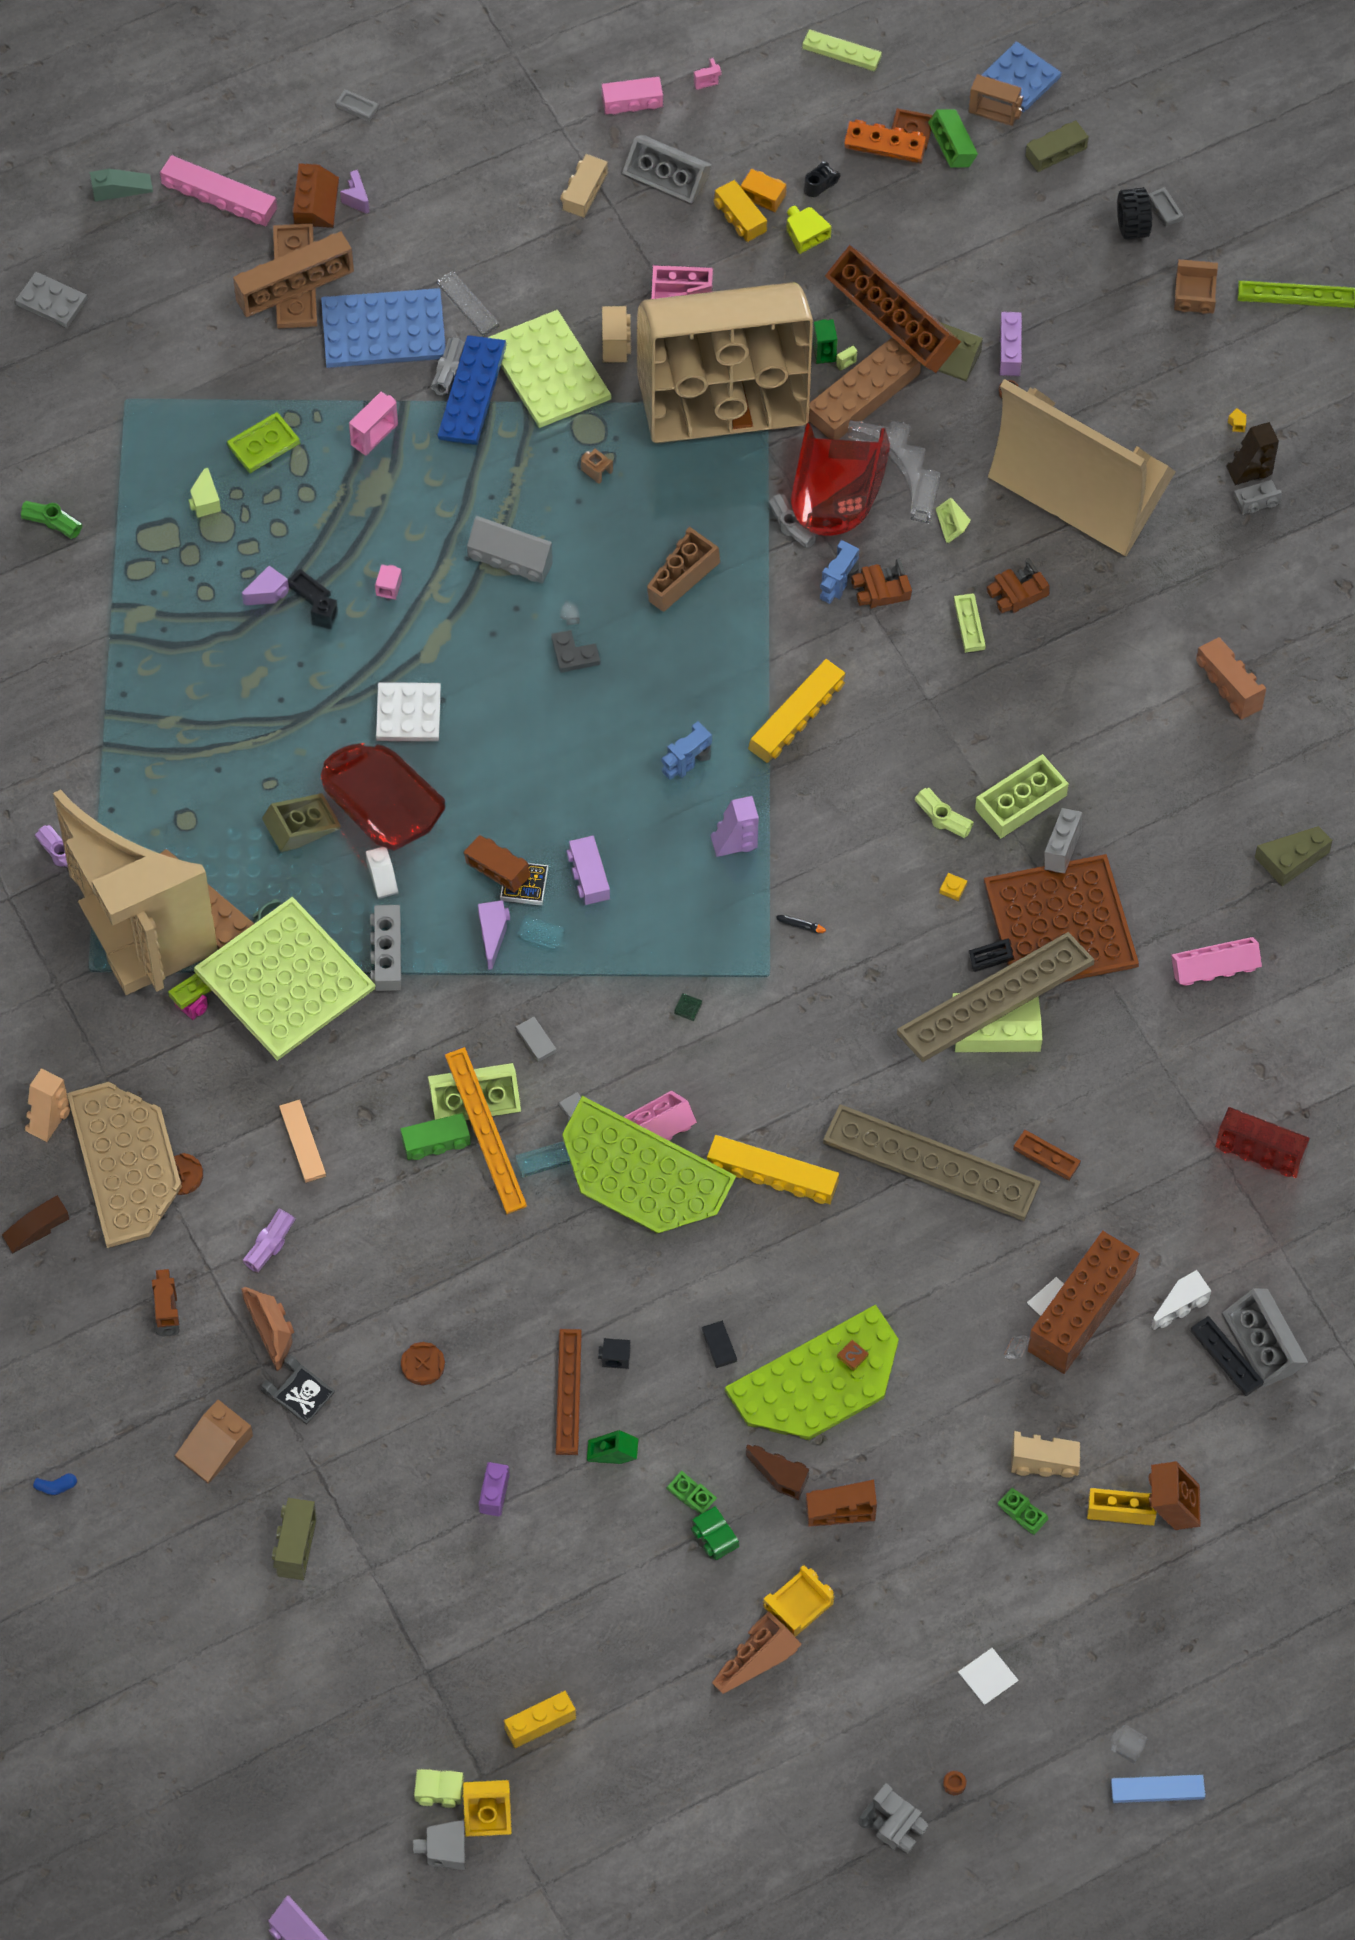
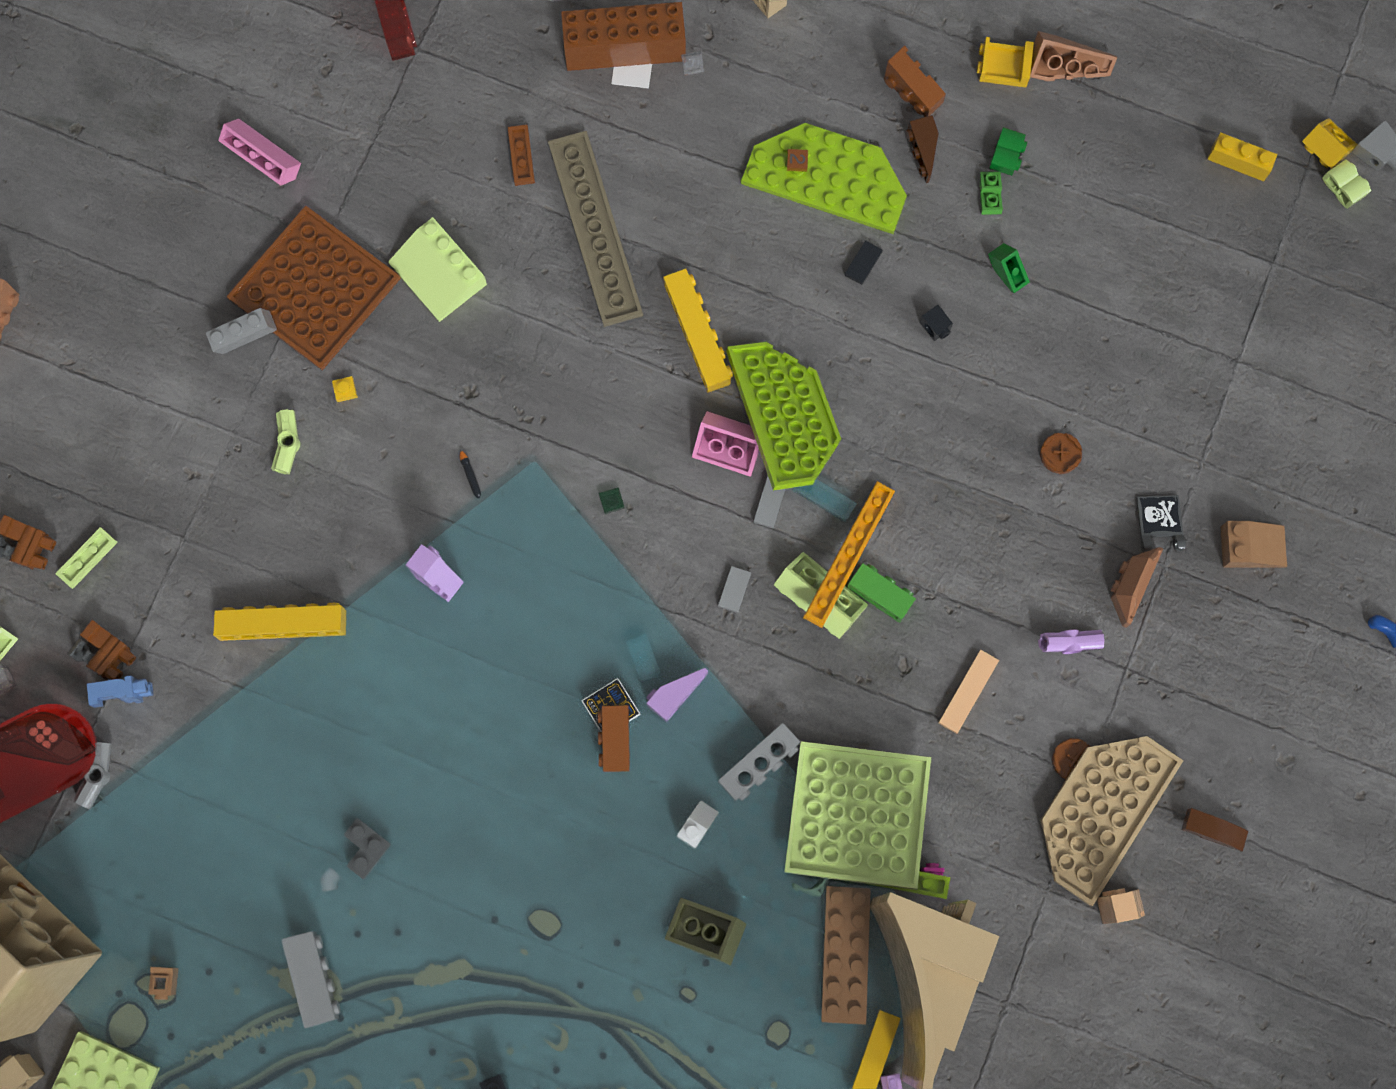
camera: 130 degrees left, 15 degrees up
(165, 1304) = (1185, 676): dark orange hips -> none
(294, 1538) = (1277, 419): olive brick -> none
(382, 794) = (632, 885): clear red windscreen -> none
(388, 581) = (420, 1060): bright pink brick -> none
(408, 712) = (530, 935): white plate -> none
(494, 1489) = (1112, 320): medium lavender brick -> none
(568, 1392) = (990, 335): dark orange tile -> none
(588, 870) = (560, 664): lavender brick -> none
(683, 569) = (209, 819): medium nougat wedge -> none
(683, 754) = (398, 672): medium blue hips -> none
(993, 956) = (396, 325): black tile -> none
(995, 996) = (425, 271): dark tan plate -> none
(1021, 796) = (224, 392): yellowish green brick -> none
(1293, 854) = (119, 164): olive wedge -> none

